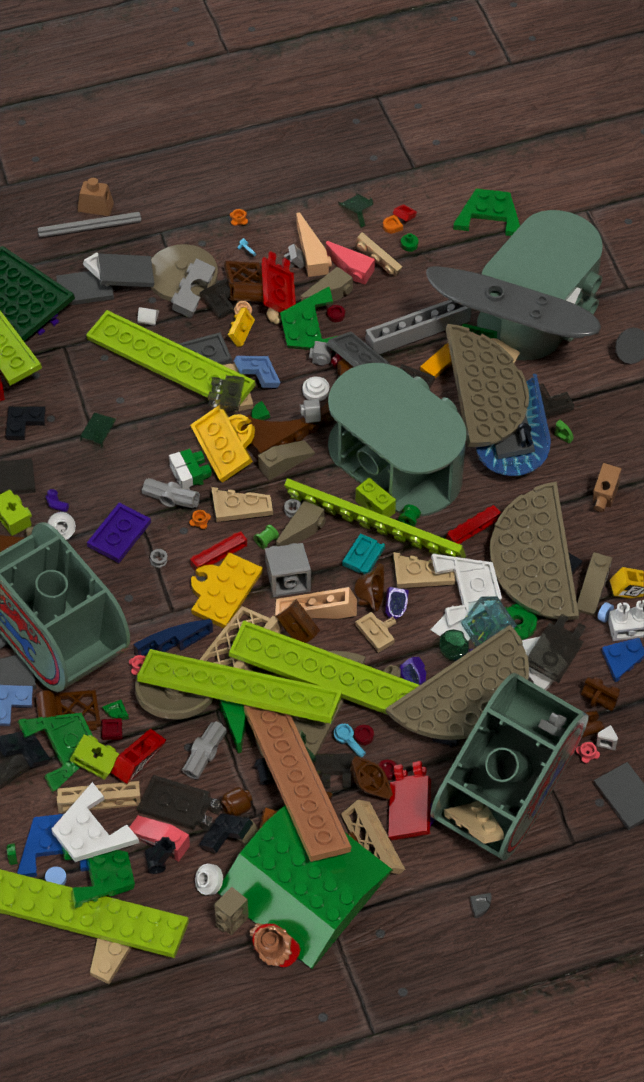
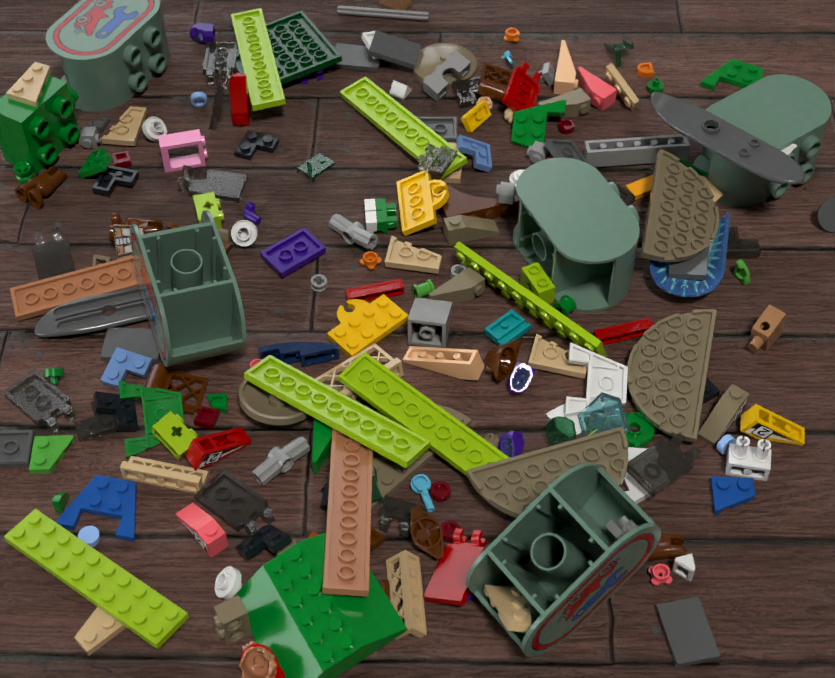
camera: 20 degrees right, 5 degrees down
(83, 834) = (126, 499): white wing -> none
(109, 876) = (136, 544): green wing -> none
(157, 855) = (190, 544): black piece -> none
(236, 801) = (288, 517): reddish brown head -> none
(260, 411) = (464, 186): green tile -> none
(298, 622) = (418, 370): reddish brown panel -> none
(376, 631) = (491, 399): tan plate -> none
(404, 212) = (660, 63): red tile -> none
(524, 432) = (700, 258): black pin -> none
(600, 694) = (692, 520): reddish brown hips -> none

